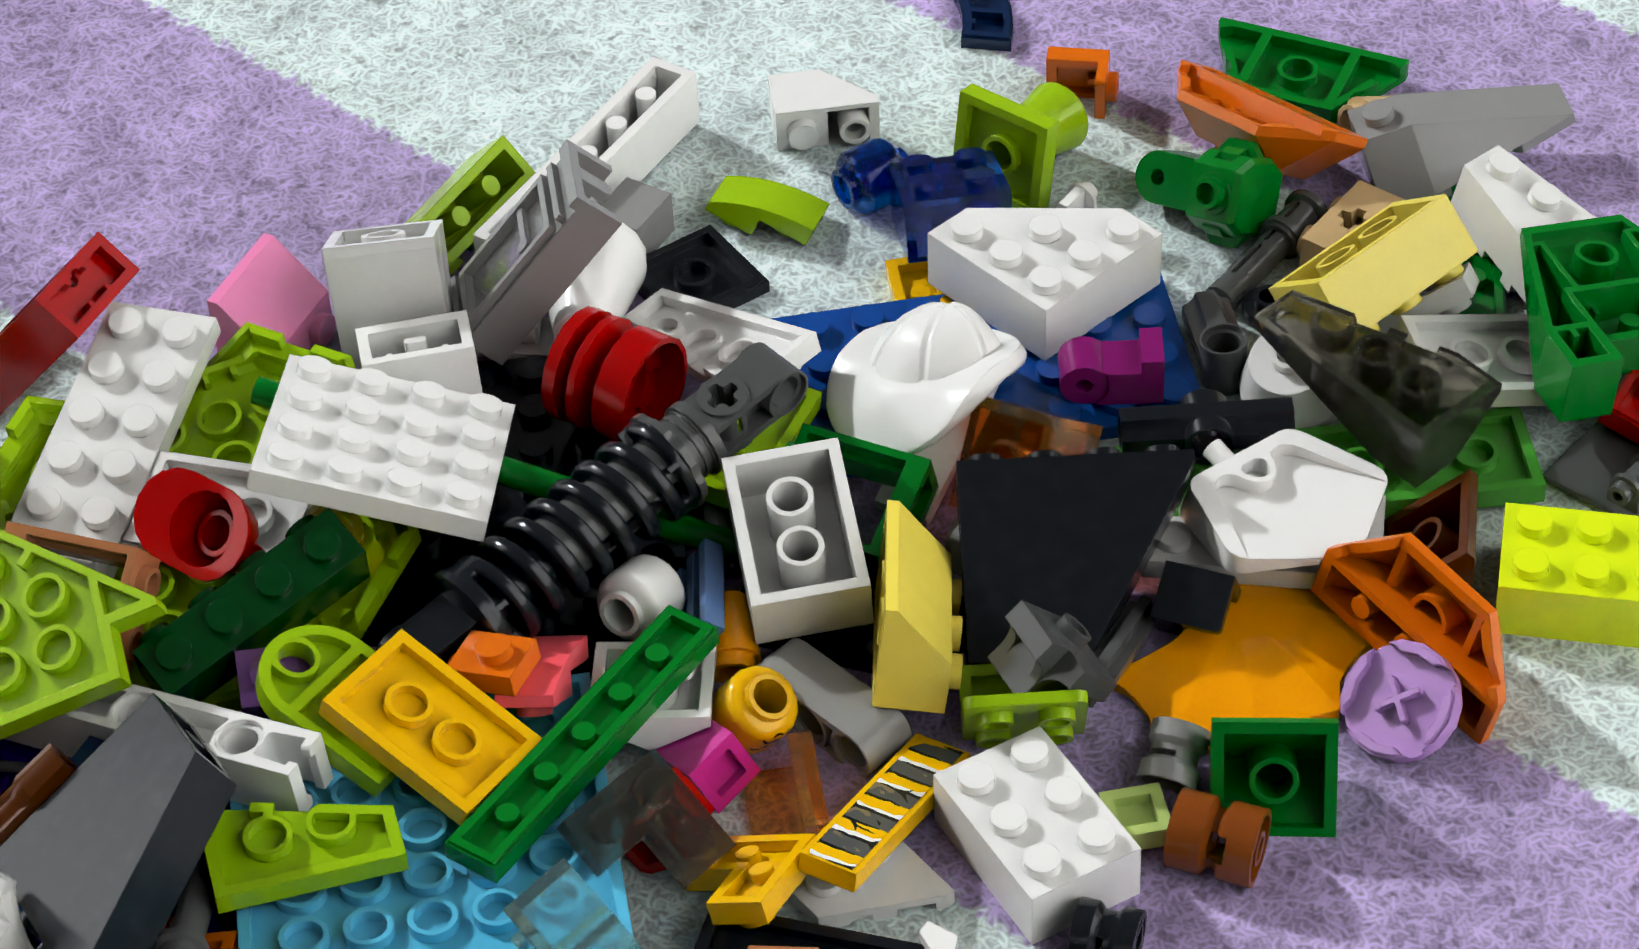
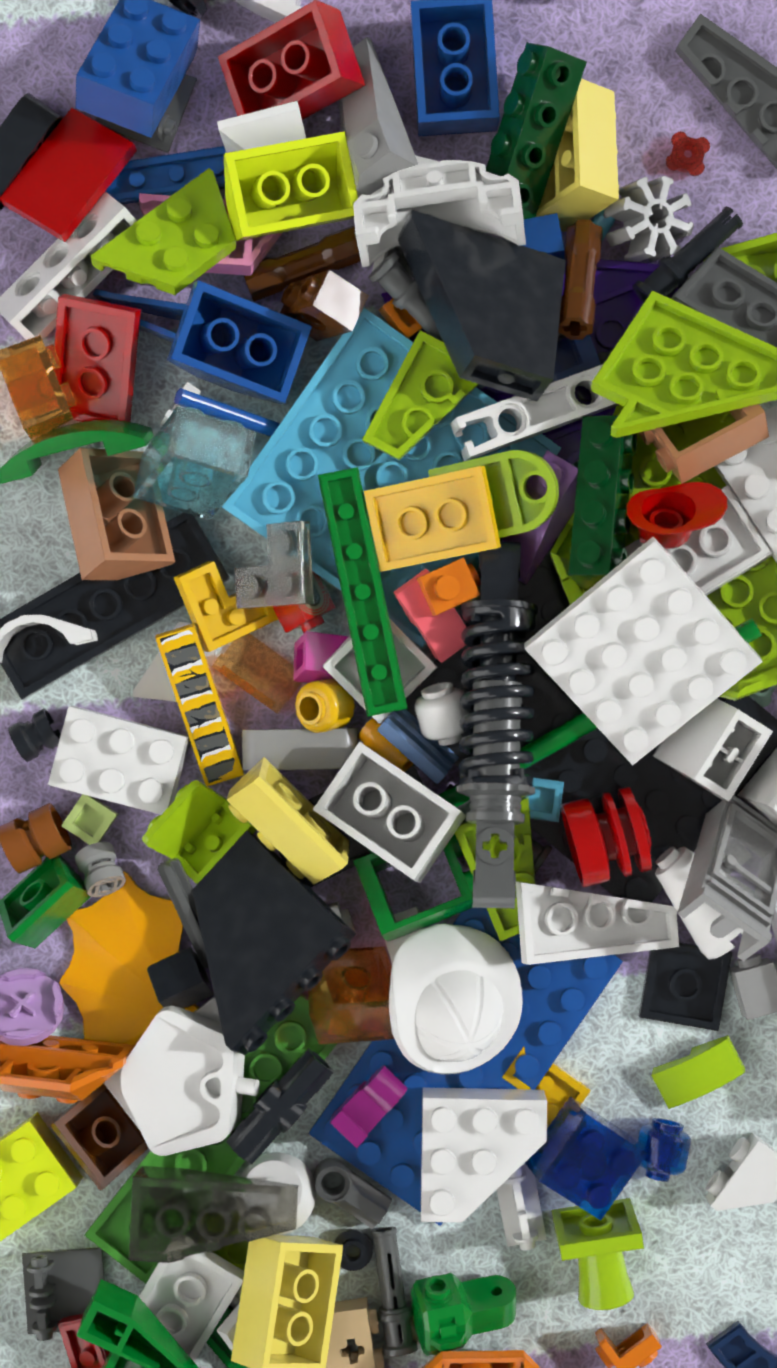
camera: 135 degrees right, 45 degrees up
(1049, 654) = (186, 852): dark grey brick -> none

